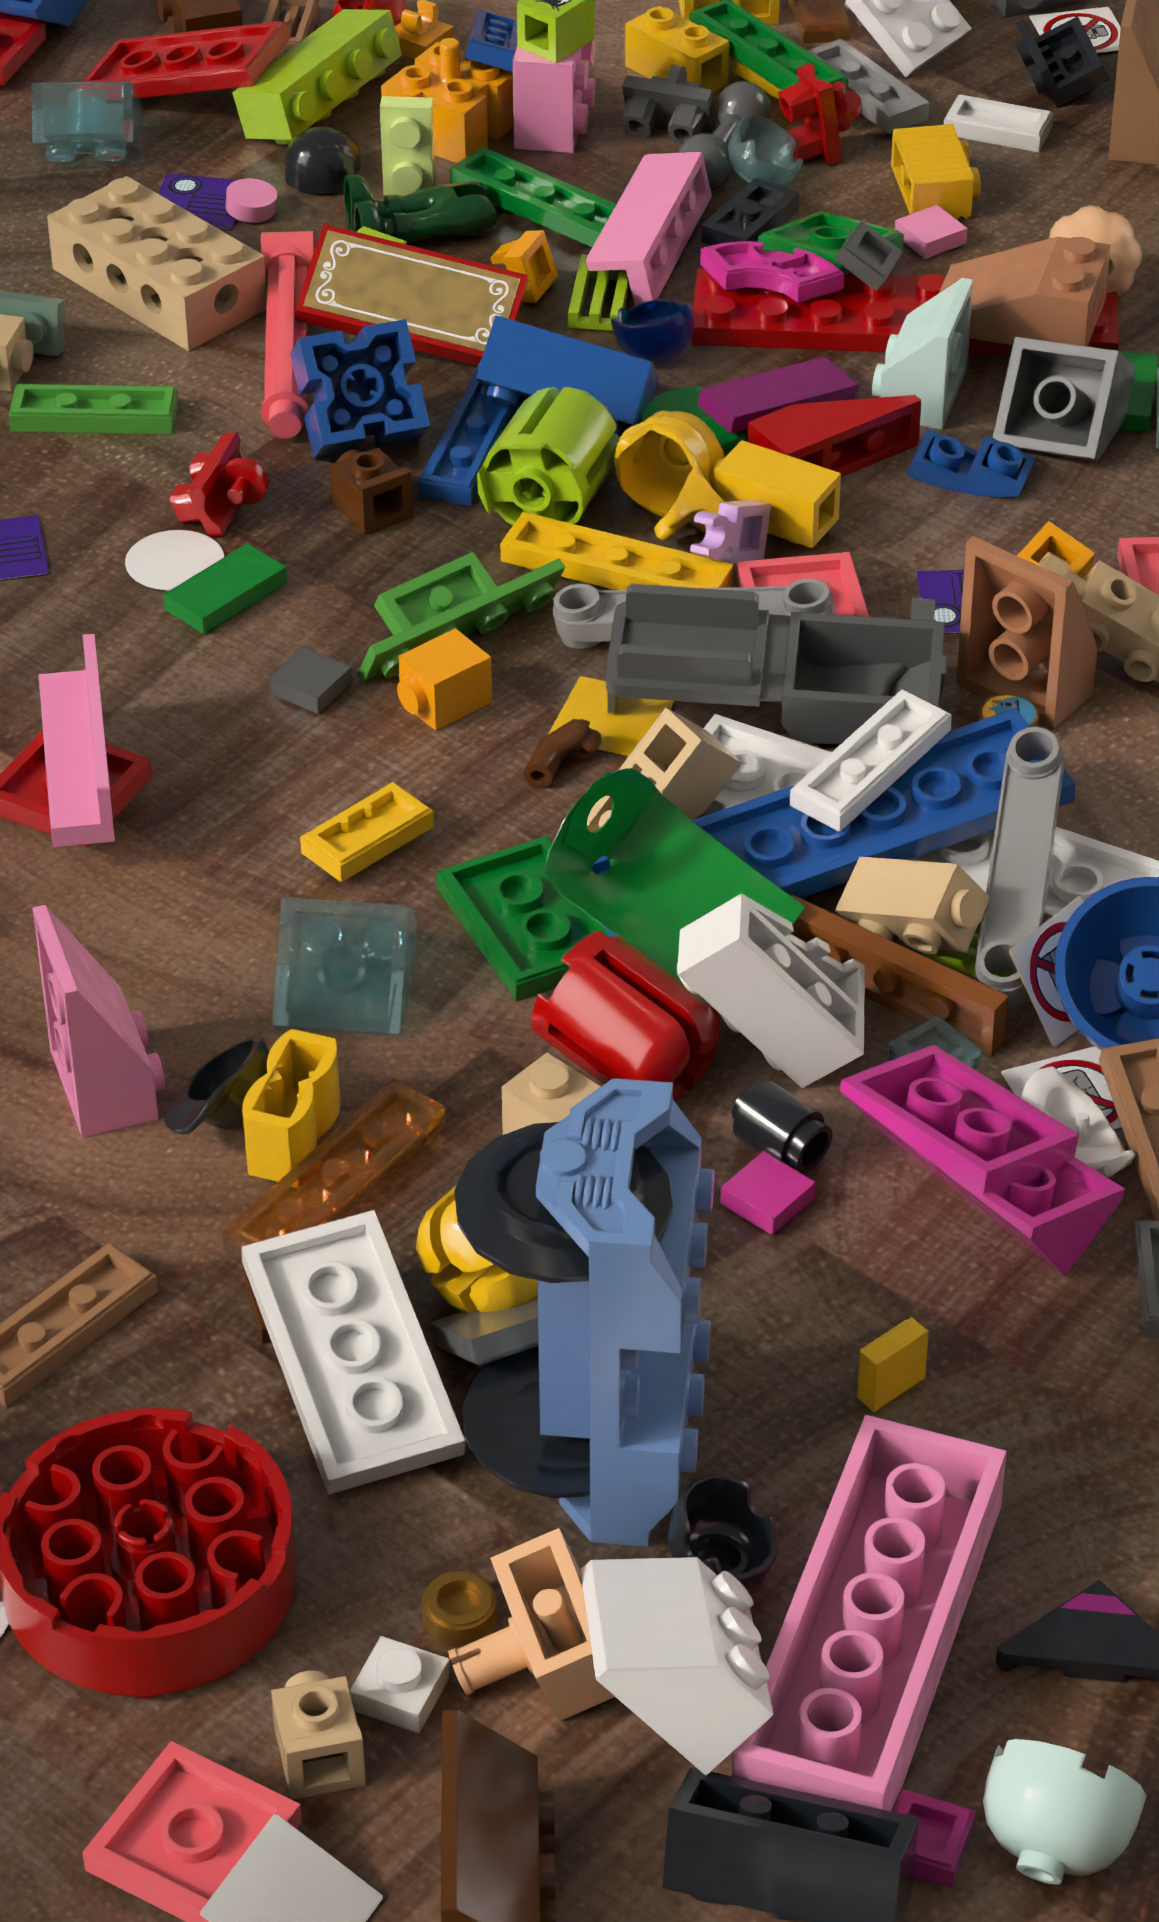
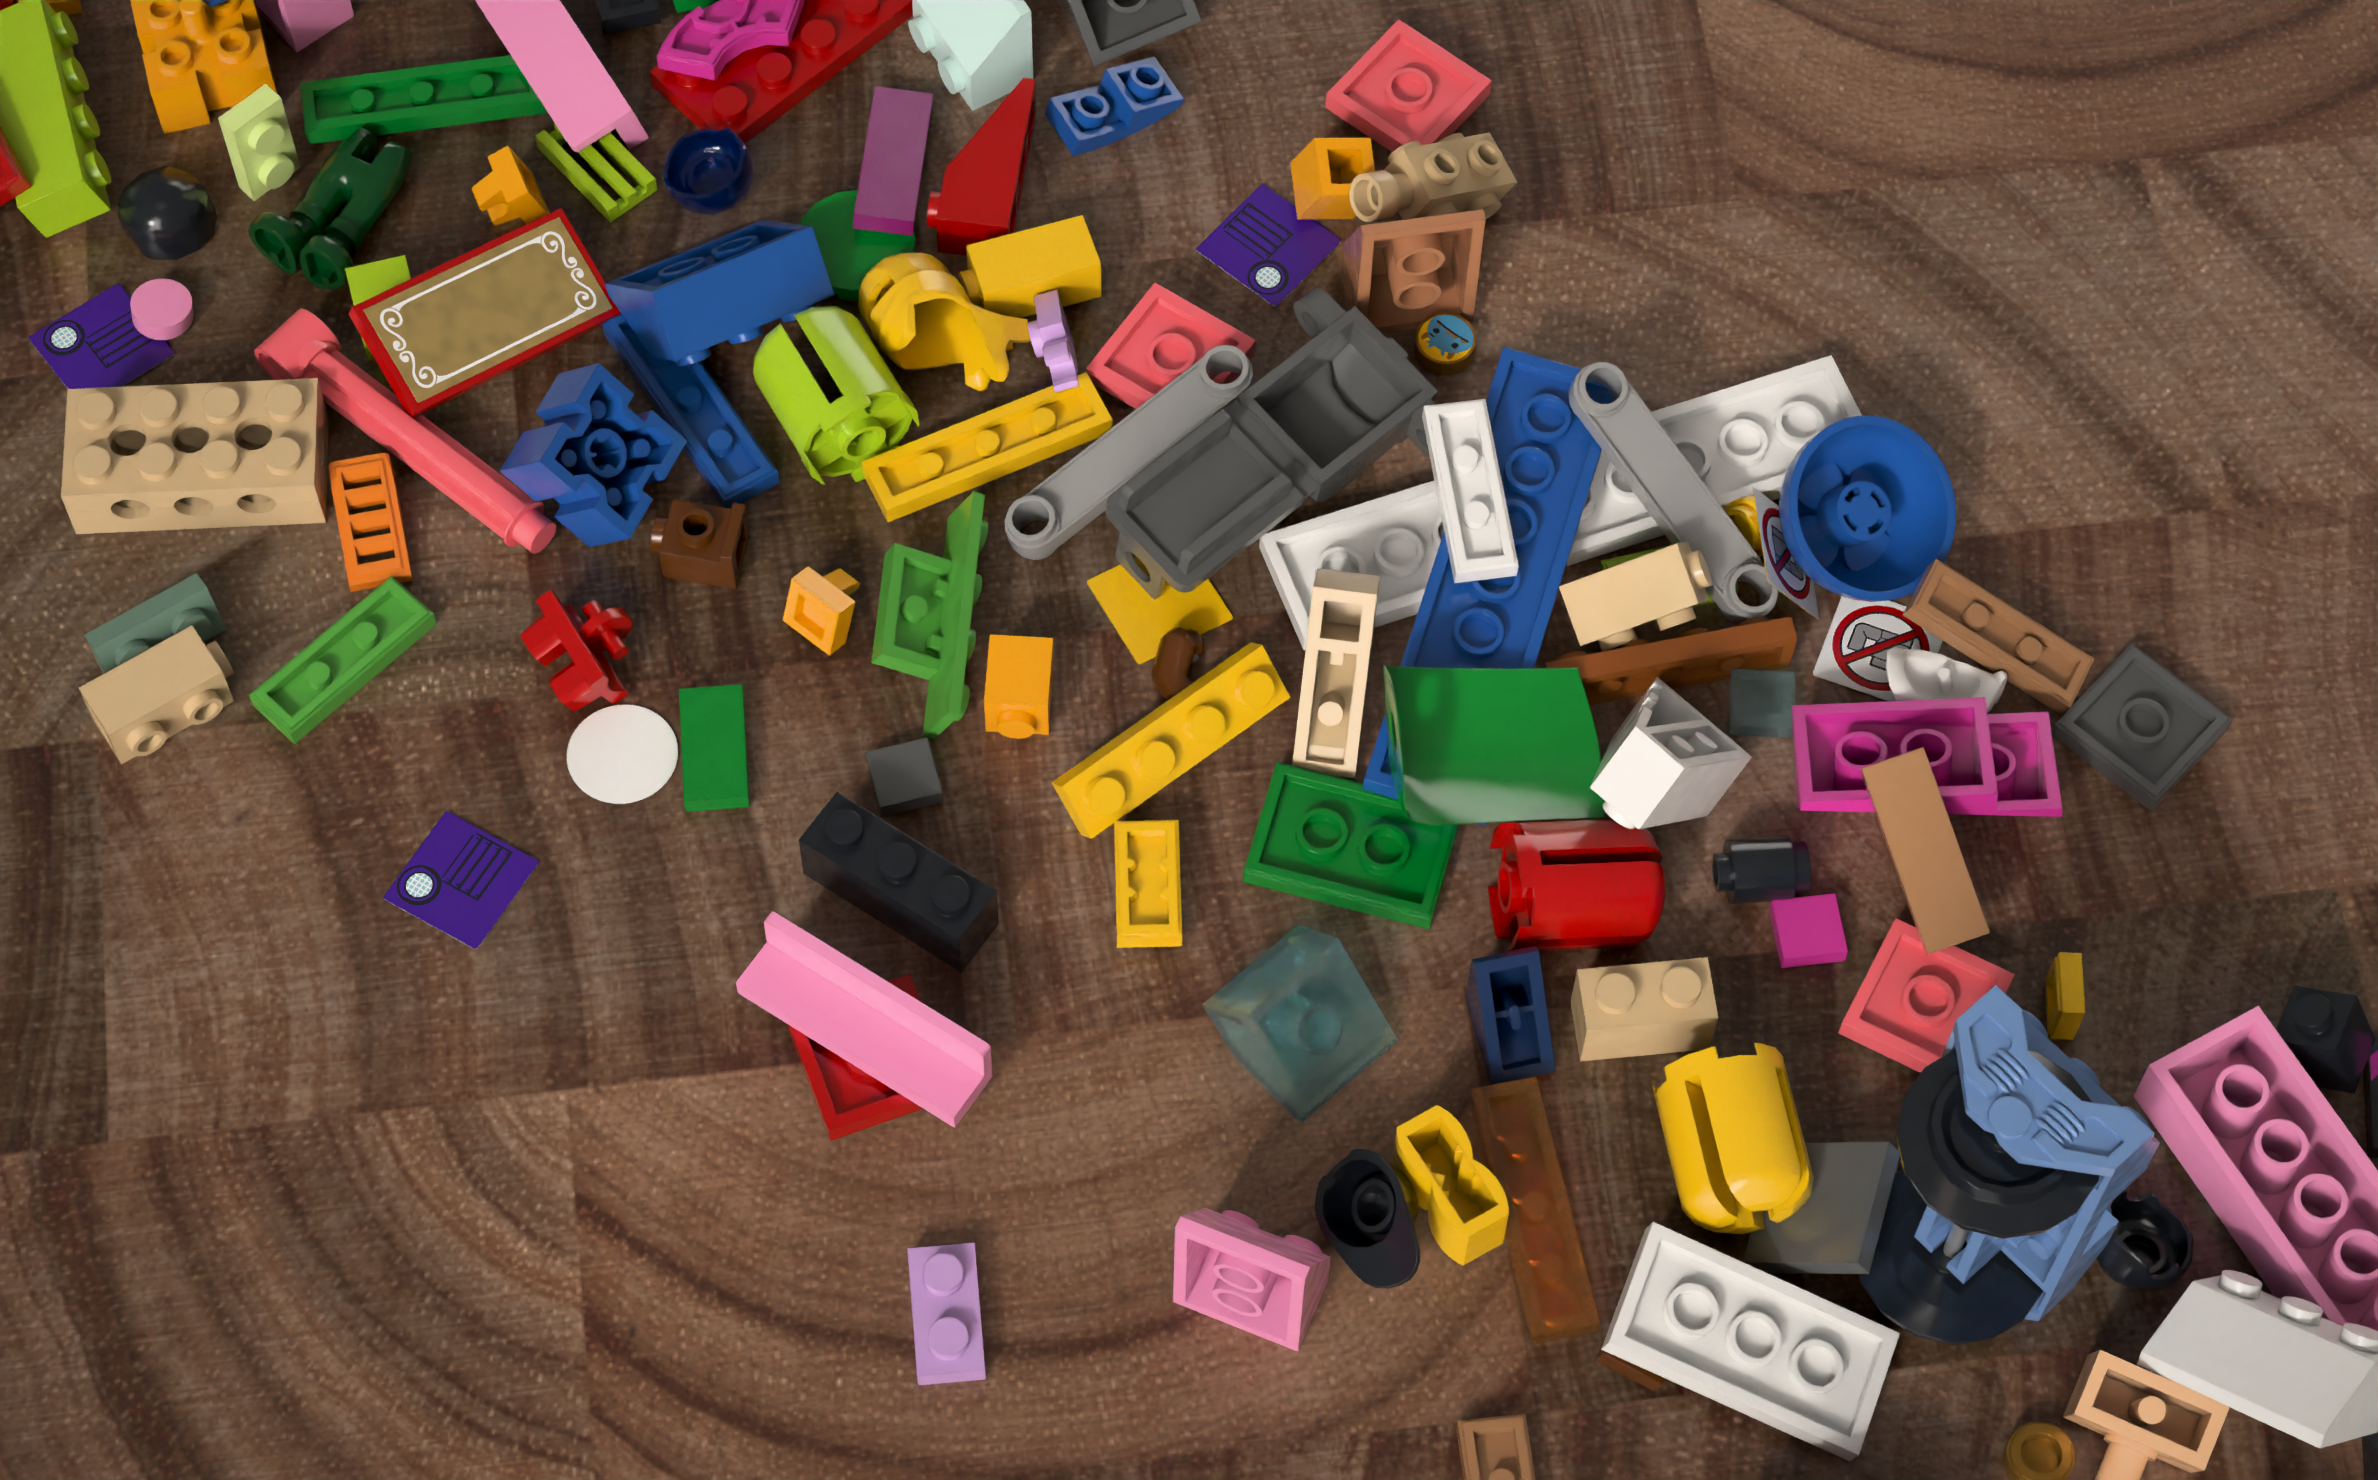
camera: 50 degrees left, 20 degrees up
(209, 354) = (362, 484): none -> orange slope
(217, 713) = (899, 881): none -> black brick
(388, 557) = (821, 607): none -> light orange tile
(483, 1054) = (1510, 1015): none -> dark blue slope
(487, 769) = (1171, 740): none -> yellow plate
(785, 1292) = (1915, 998): none -> coral plate
(888, 1170) = (1924, 851): none -> medium nougat tile
(1048, 1536) = (2327, 1036): none -> black brick

